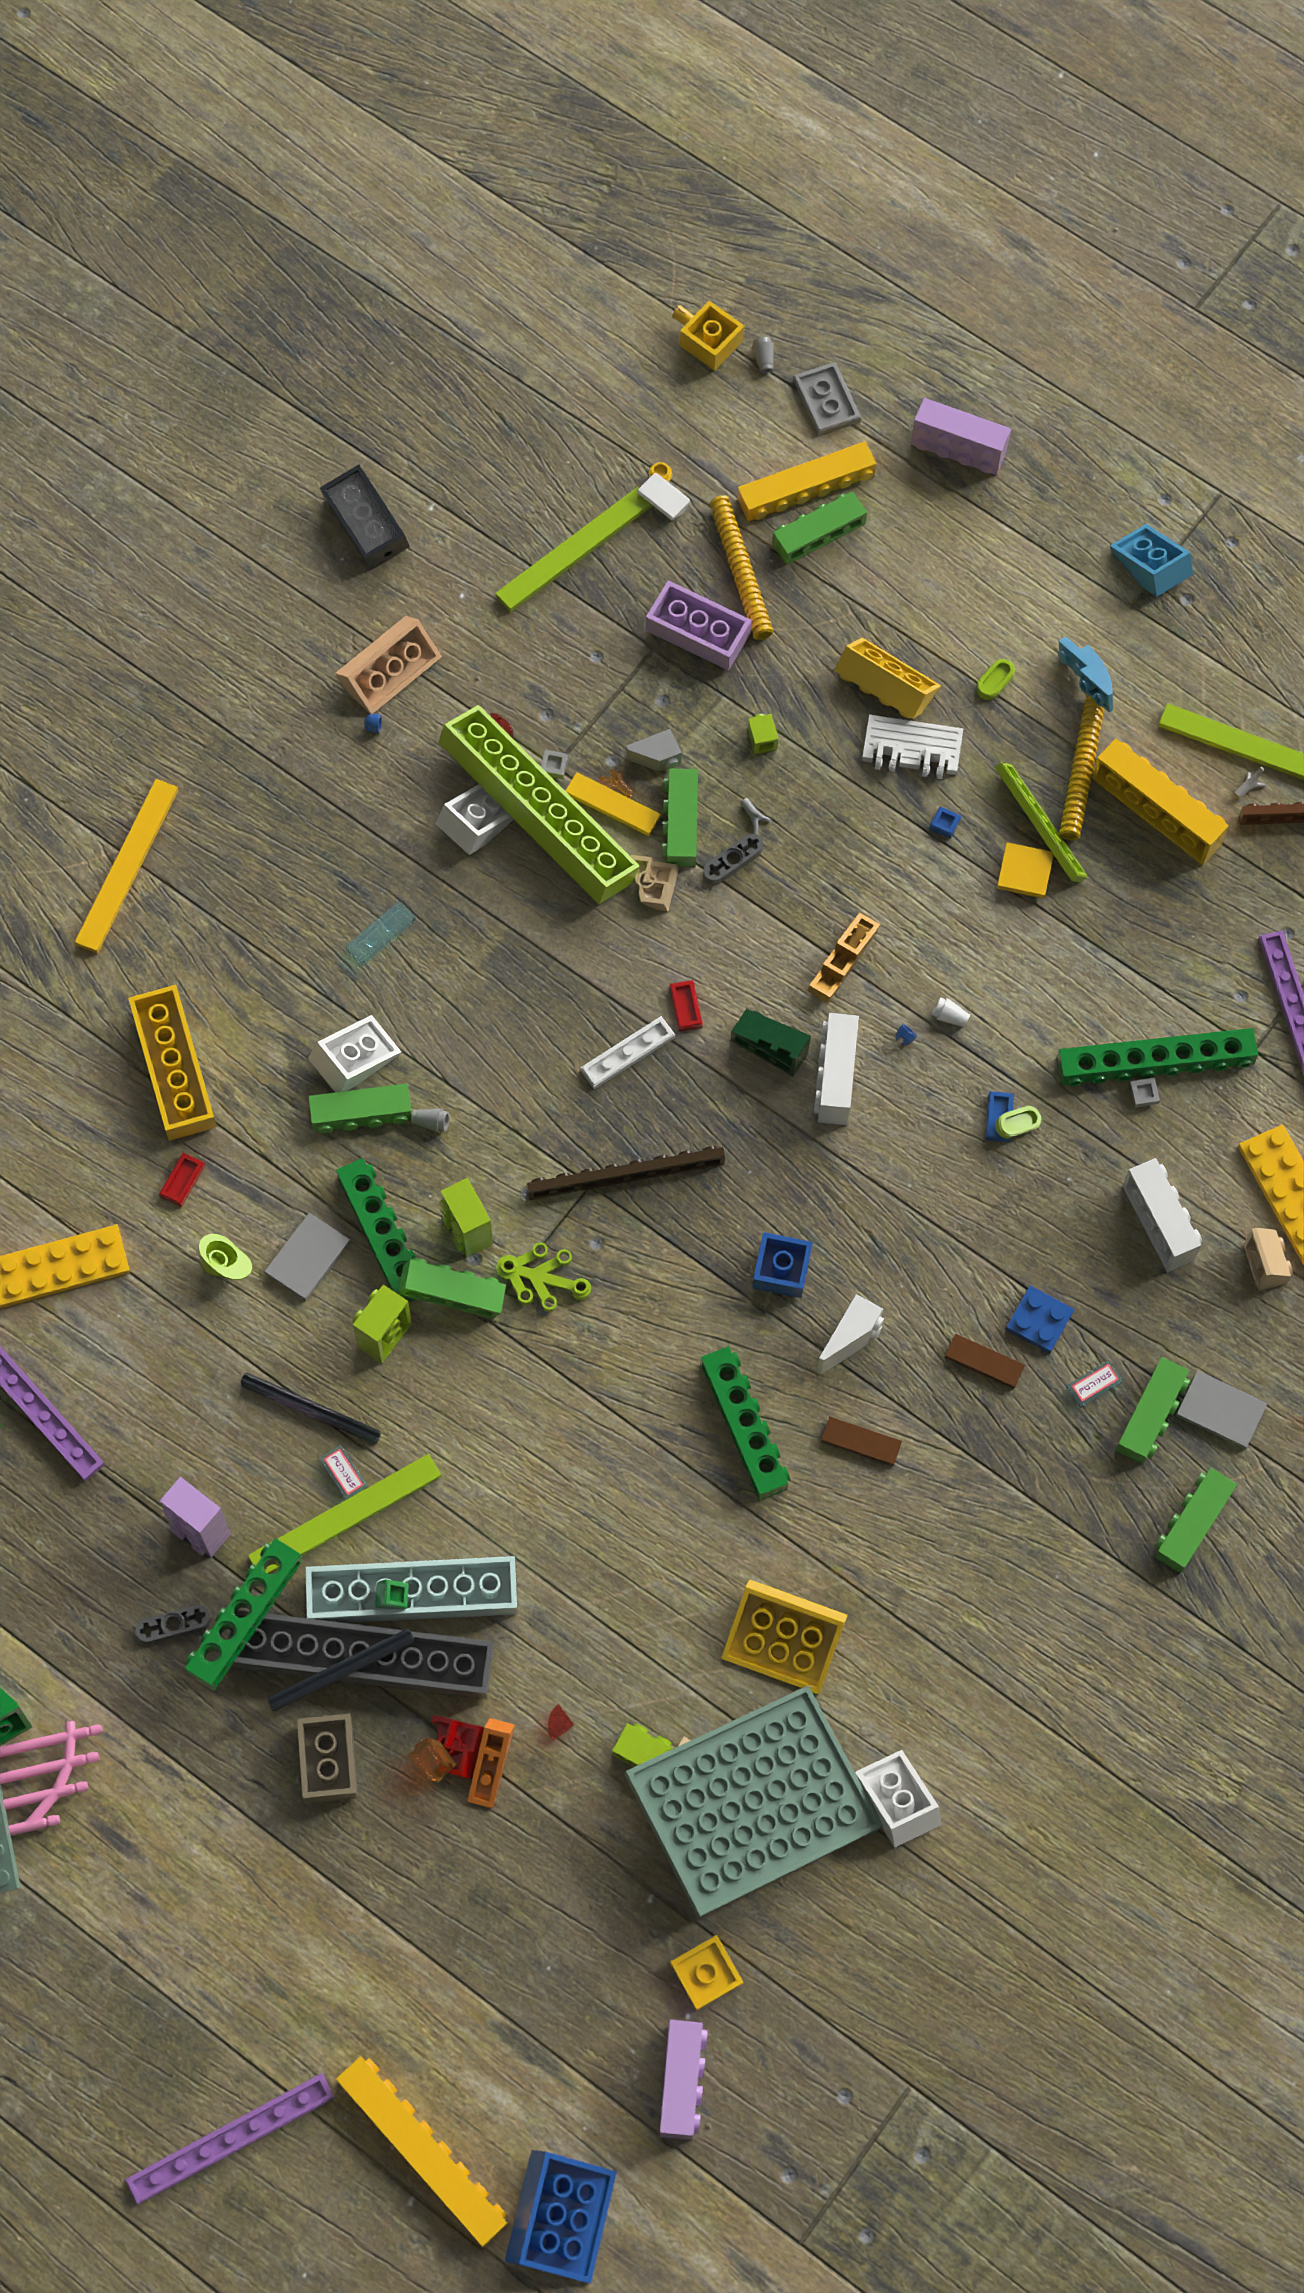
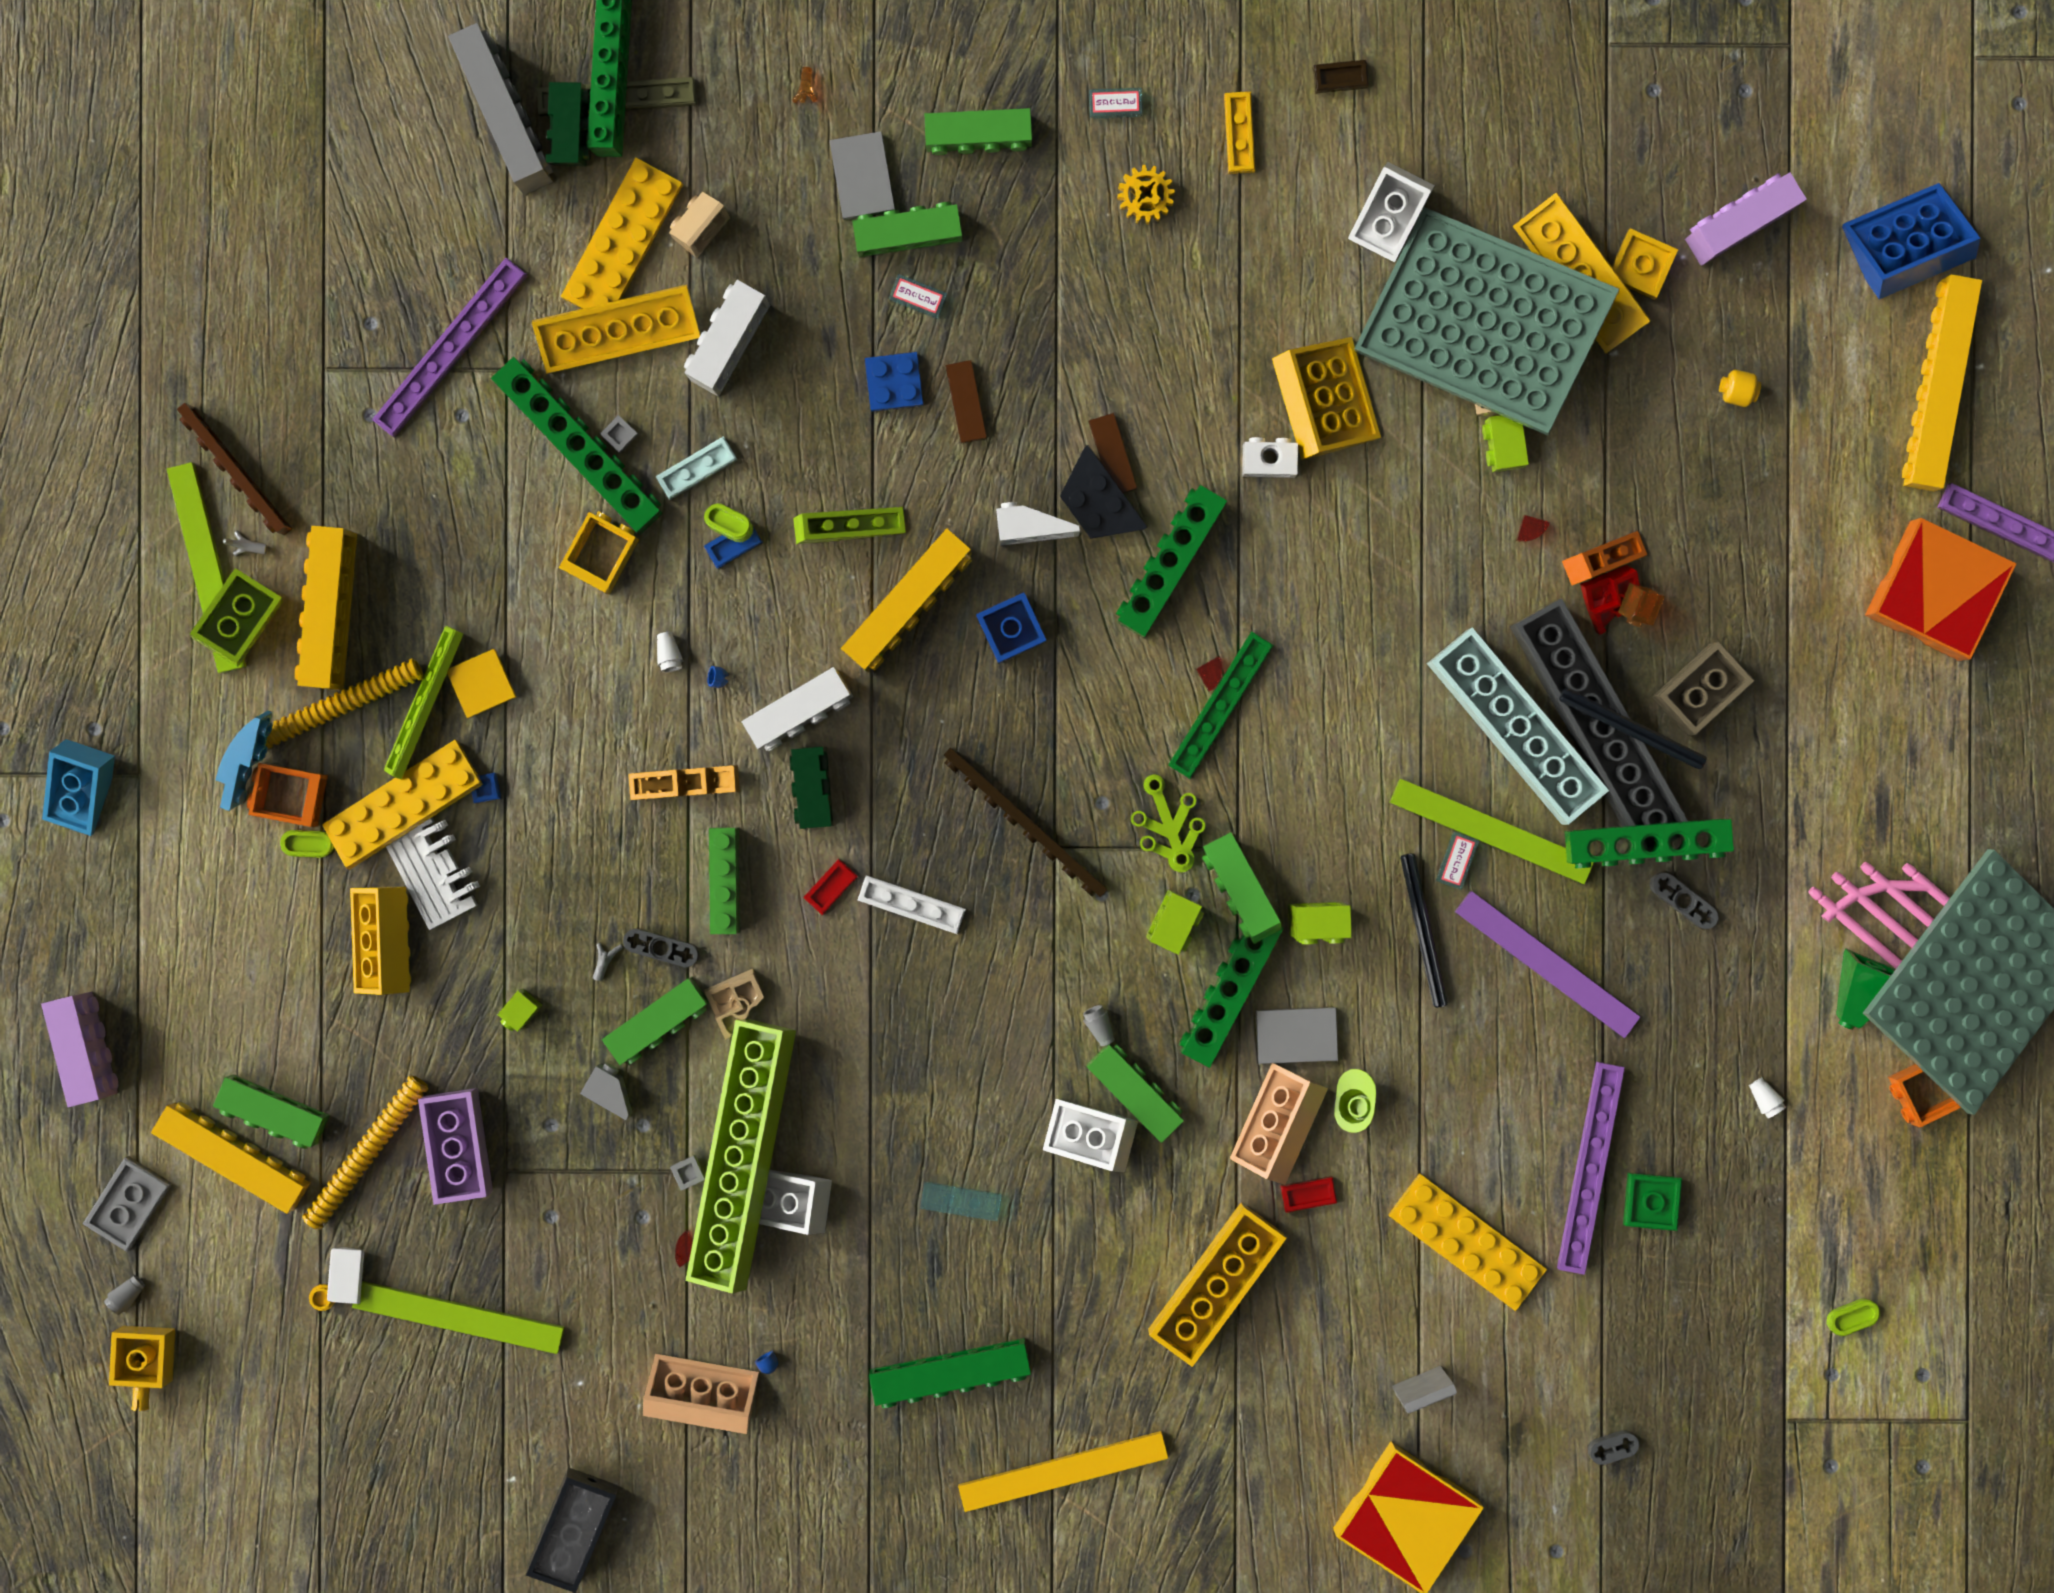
camera: 130 degrees left, 20 degrees up
(195, 1517) = (1602, 944): lavender brick -> none
(213, 1480) = (1547, 964): none -> medium lavender tile
(252, 1193) = (1278, 1124): none -> light nougat slope
(255, 2017) = (1940, 589): none -> orange tile
(263, 837) = (950, 1372): none -> green brick
(391, 1594) = (1540, 735): green slope -> none
(545, 1974) = (1740, 388): none -> yellow head
(604, 1383) = (1220, 705): none -> green tile
(613, 804) = (686, 1092): yellow tile -> none
(618, 781) = (661, 1104): clear orange bar -> none
(634, 1392) = (1210, 673): none -> clear red tile
(748, 933) = (724, 880): none -> bright green brick
(760, 1915) = (1558, 236): none -> yellow plate
(772, 1541) = (1255, 466): none -> white brick
(833, 1404) = (1098, 499): none -> black wing
(860, 1203) = (907, 600): none -> yellow brick
(951, 1207) = (848, 524): none -> lime slope
(974, 758) = (402, 804): none -> yellow plate
(1025, 703) = (313, 799): none -> orange window
(1039, 1841) = (1340, 76): none -> dark brown tile
(1050, 1726) = (1239, 132): none -> yellow tile
(1053, 994) = (579, 541): none -> yellow window
(1053, 1623) = (1154, 202): none -> yellow gear
(1077, 1131) = (696, 468): none -> light aqua tile
(1143, 1645) = (1115, 103): none -> tile
(1198, 737) = (236, 617): none -> lime brick
(1227, 1144) = (616, 329): none -> yellow plate

